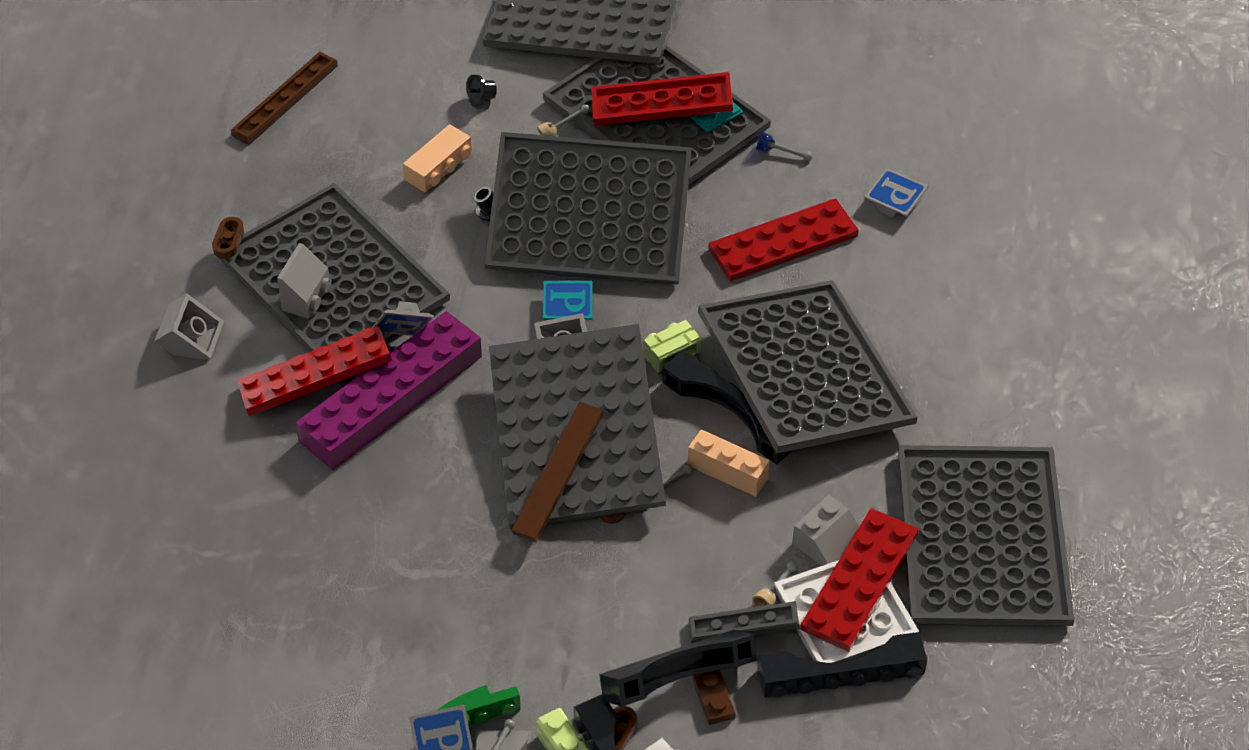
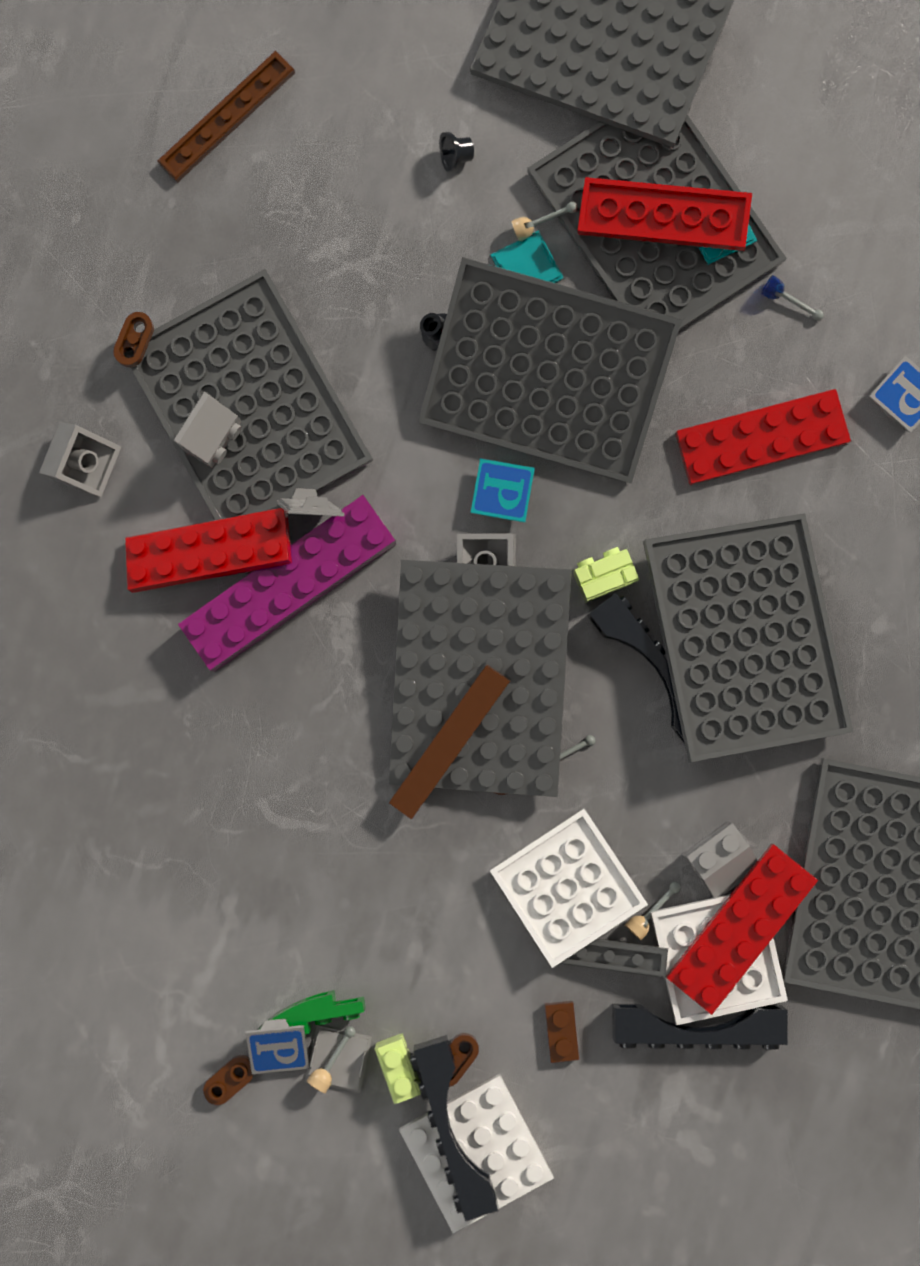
camera: 10 degrees right, 35 degrees up
(437, 158) = (389, 250): light nougat brick -> none
(641, 678) = (579, 997): black arch -> none
(692, 574) = (568, 888): none -> white plate
(728, 463) = (635, 749): light nougat brick -> none

